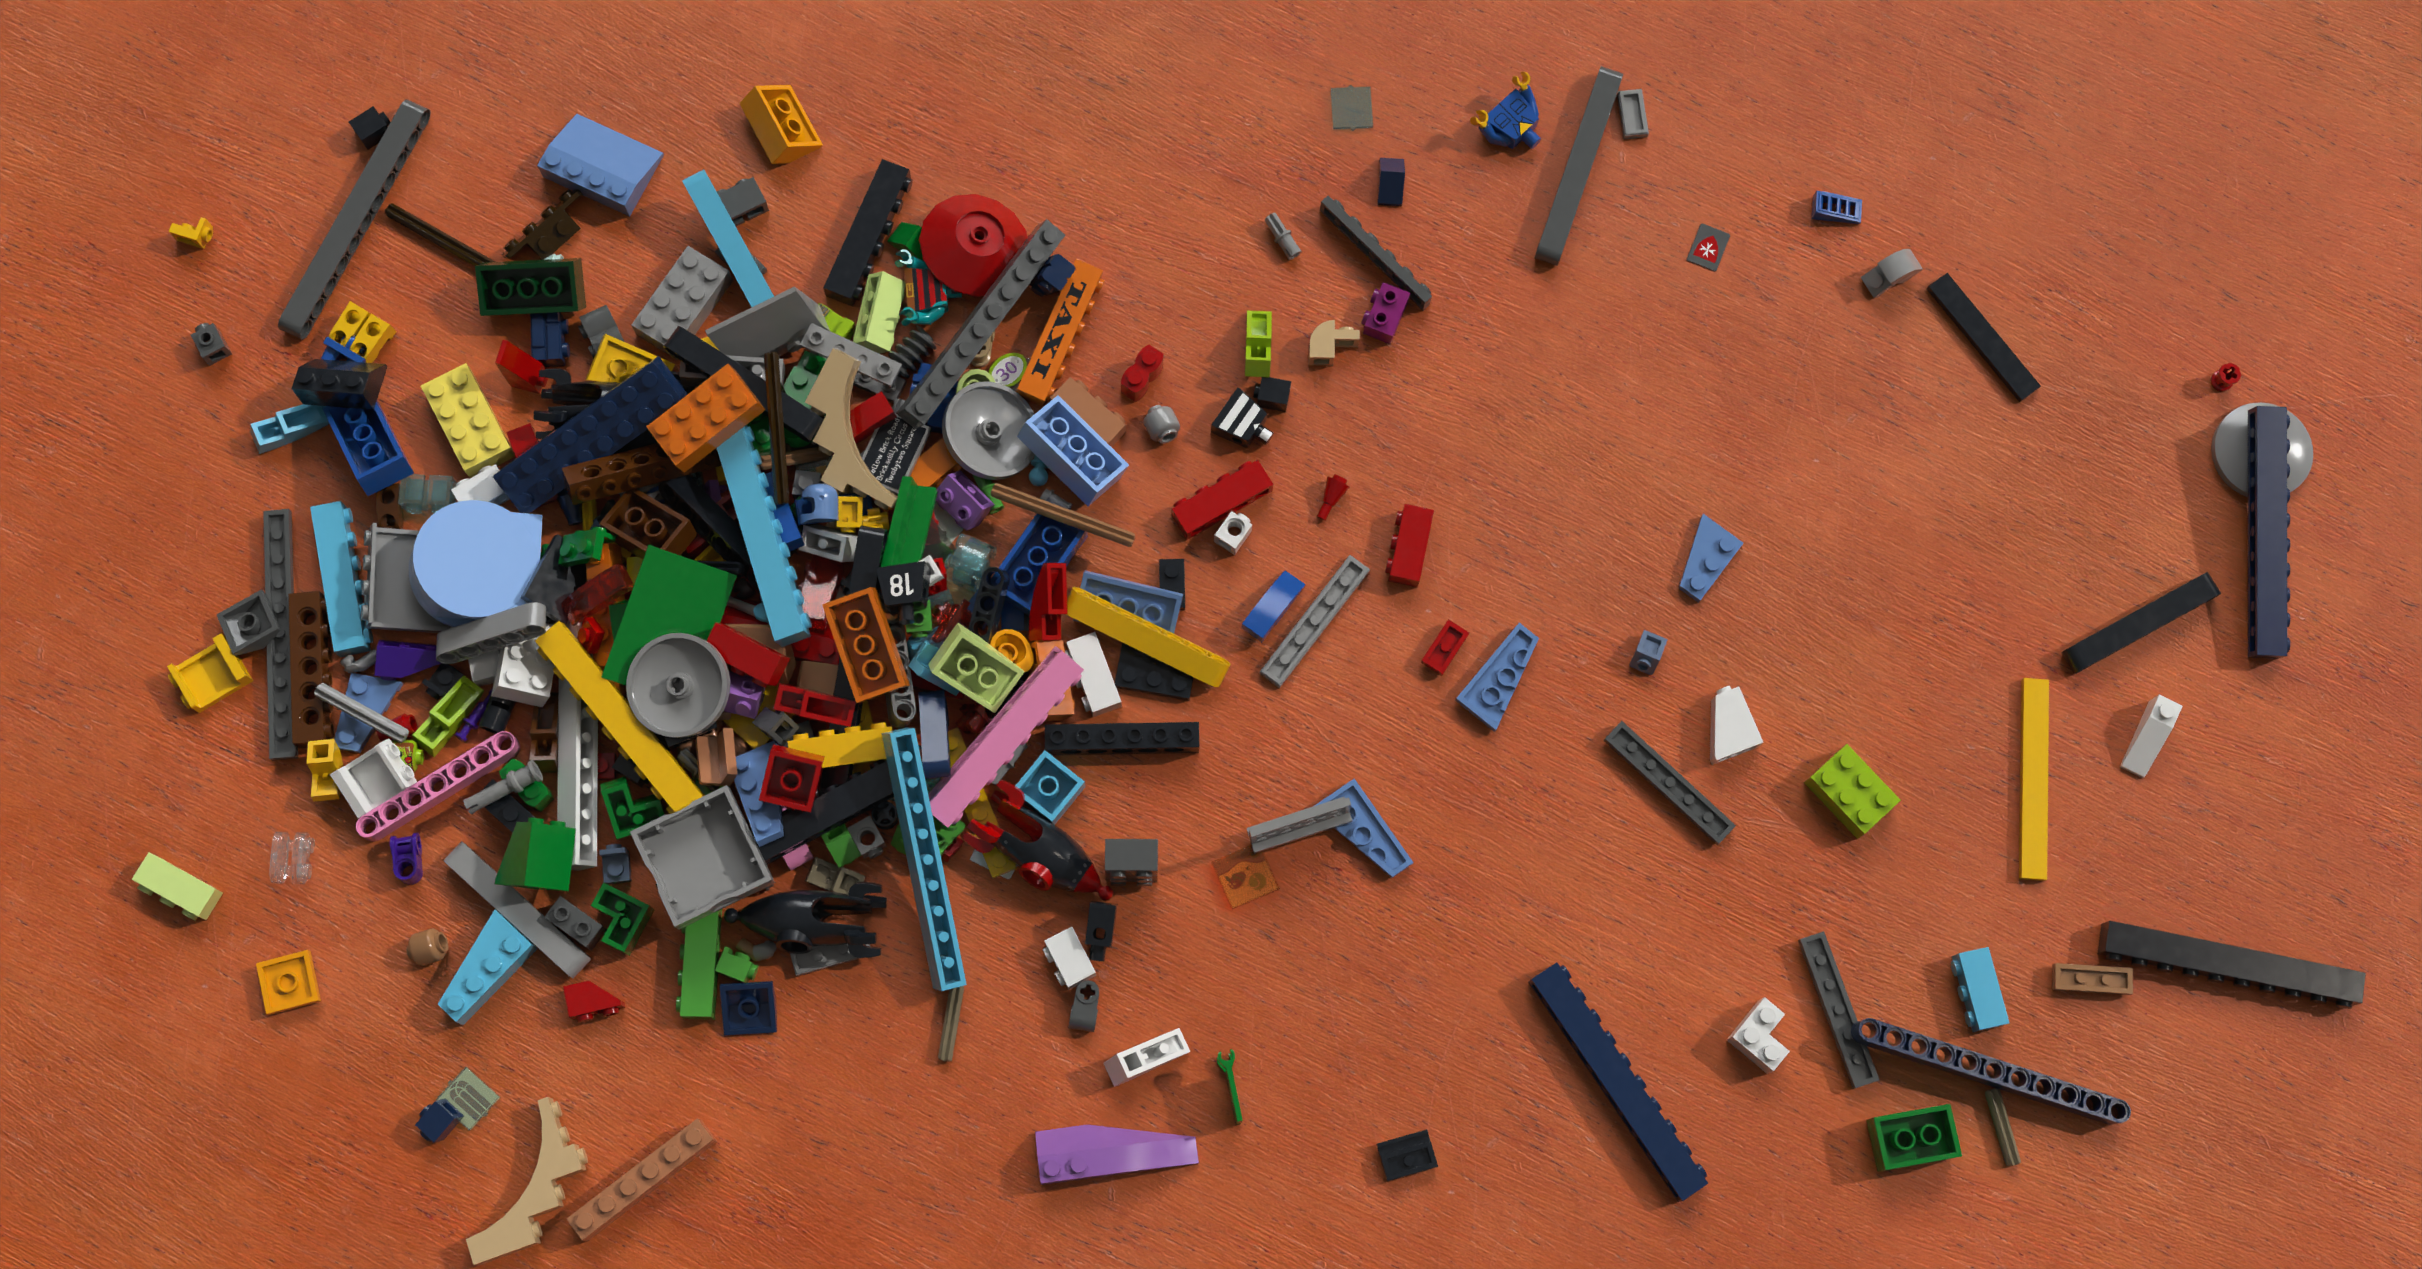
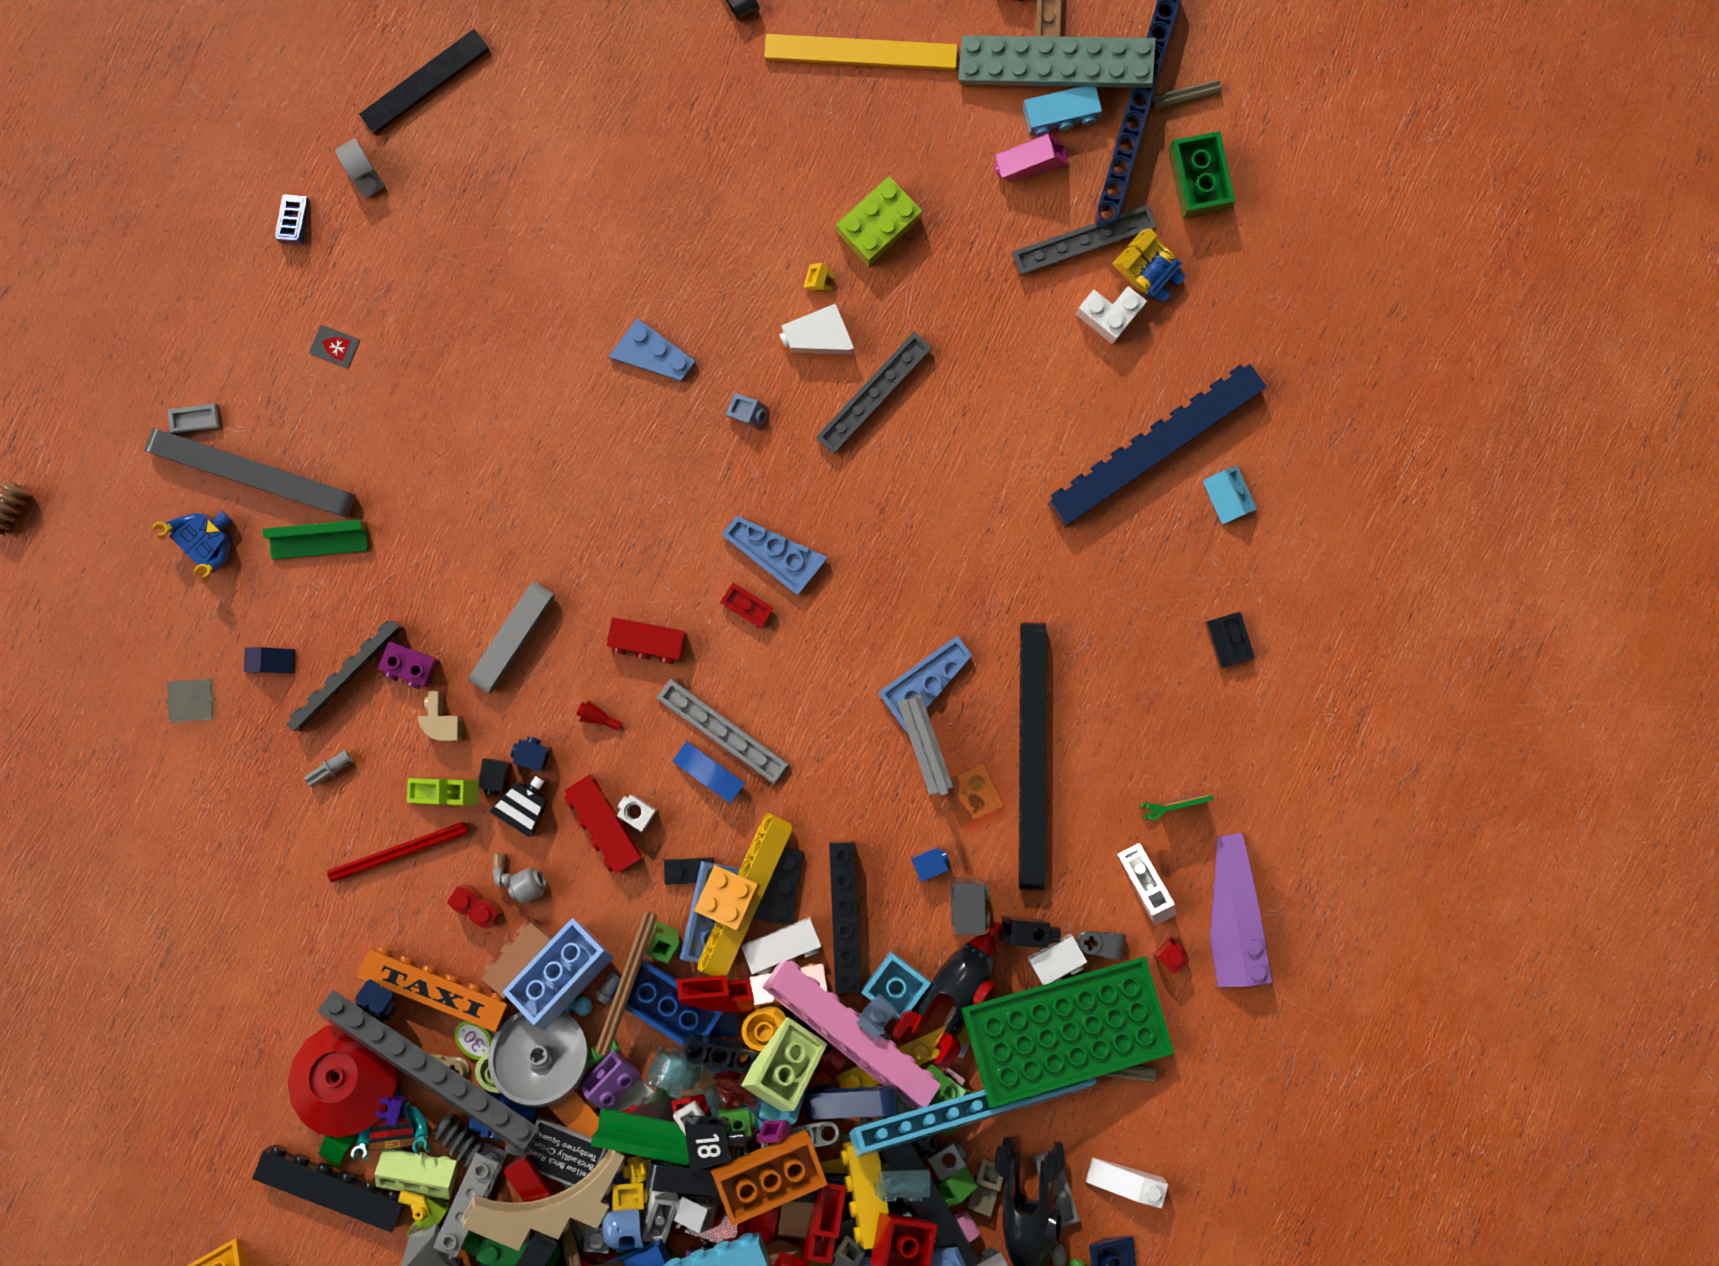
camera: 85 degrees left, 10 degrees up
(830, 577) = (695, 1212): none -> light grey brick
(834, 1026) = (1127, 1182): none -> white slope
(850, 312) = (417, 1202): none -> yellow arm
(853, 781) = (903, 1184): none -> clear light blue bracket
(910, 654) = (774, 1131): none -> magenta slope
(943, 291) = (395, 1109): none -> dark purple tile
(998, 961) = (1067, 1031): none -> green plate
(1021, 762) = (876, 1015): none -> sand blue bracket
(1070, 1080) = (1172, 955): none -> red brick
(1101, 554) = (663, 942): none -> bright green brick
(1146, 615) = (727, 898): none -> light orange plate
(1174, 828) = (930, 863): none -> blue brick
(1180, 397) = (498, 869): none -> arm
(1197, 301) = (397, 852): none -> red axle
(1285, 938) = (1032, 756): none -> black beam
(1294, 430) = (530, 753): none -> dark blue brick
(1413, 413) = (511, 637): none -> light grey beam
(1512, 228) = (317, 539): none -> green panel
(1565, 1161) = (1229, 494): none -> medium azure panel
(1790, 725) = (816, 277): none -> yellow tile
(1812, 1088) = (1149, 266): none -> hips
(1925, 955) = (1031, 158): none -> slope
(2032, 984) = (1057, 61): none -> sand green plate

